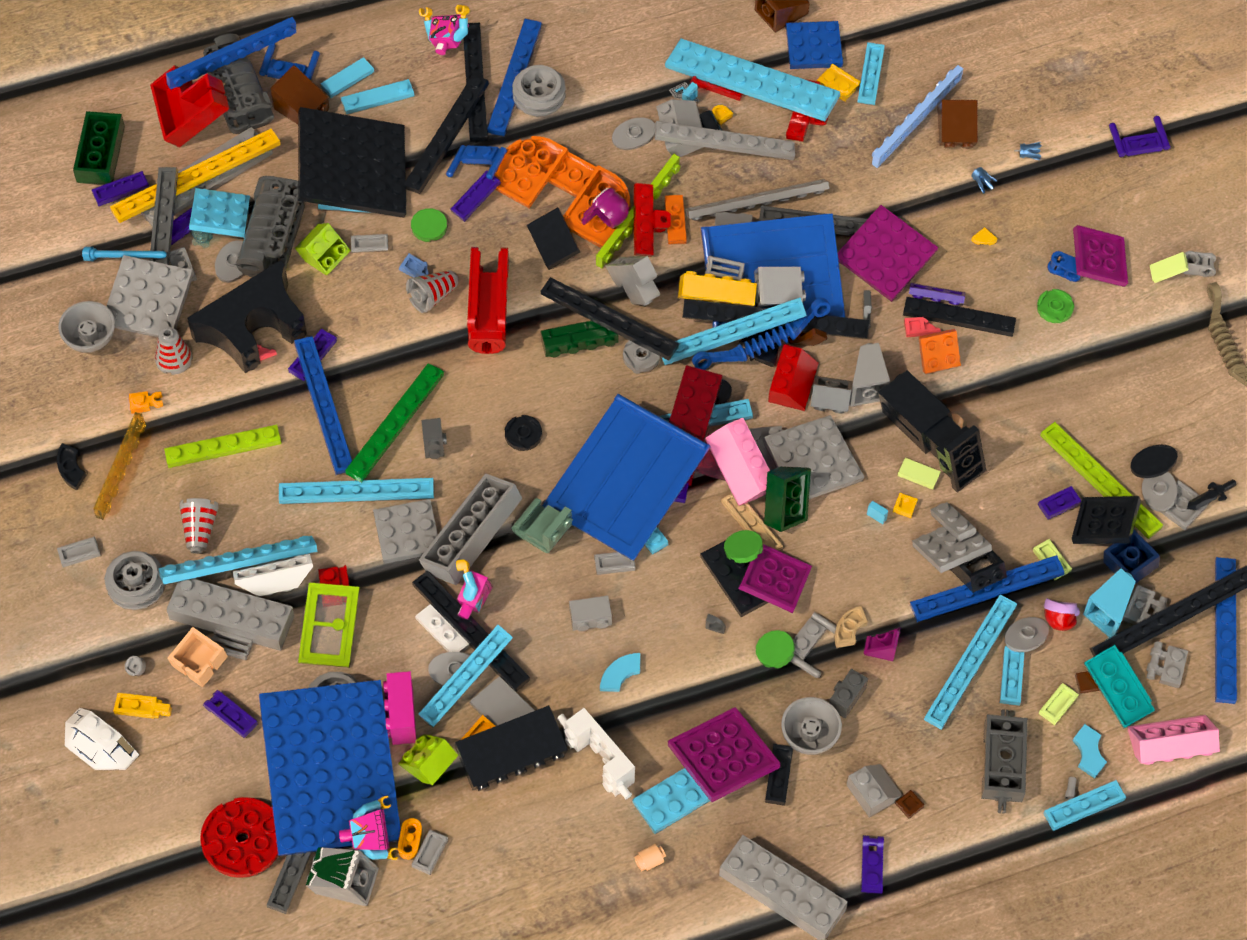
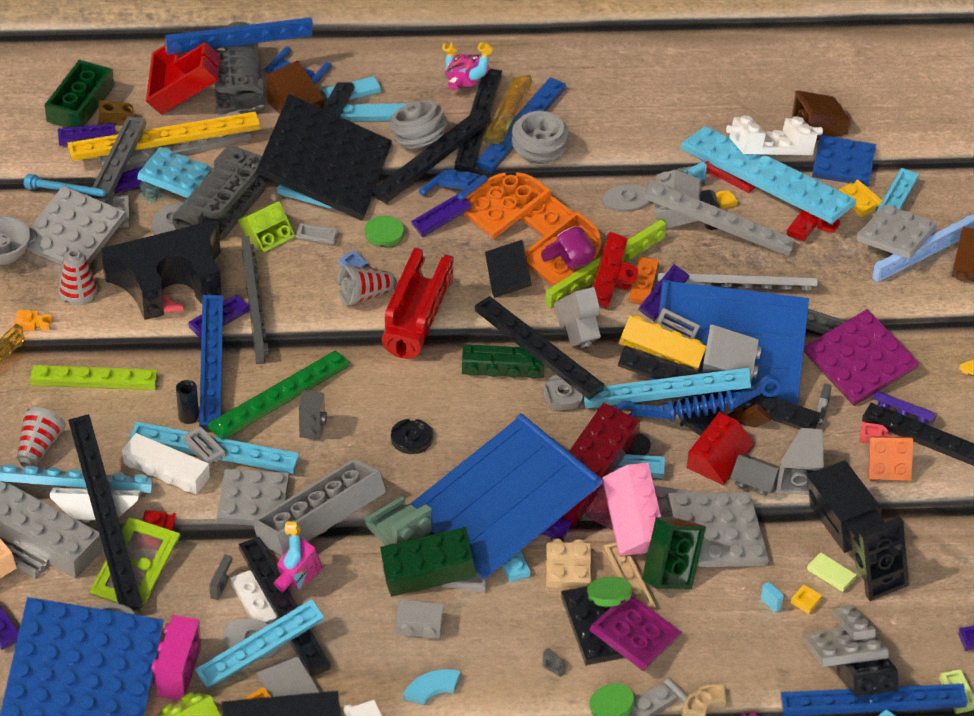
camera: 15 degrees right, 15 degrees down
(138, 158) = (114, 112): none -> pearl gold leg
(290, 587) = (105, 512): none -> black plate
(318, 453) = (187, 401): none -> black pin
(320, 519) = (166, 463): none -> white brick
(335, 322) = (255, 305): none -> dark grey plate
(340, 94) = (339, 97): none -> black plate
(360, 503) = (199, 446): none -> light grey tile
(408, 618) = (220, 578): none -> dark grey tile
(425, 105) = (418, 124): none -> light grey wheel
(499, 66) = (507, 109): none -> clear yellow plate
(581, 557) = (428, 561): none -> dark green brick
(693, 240) = (651, 304): none -> dark purple plate
(698, 525) = (568, 564): none -> tan plate
(764, 37) = (795, 139): none -> white brick
(883, 114) = (897, 231): none -> light grey plate

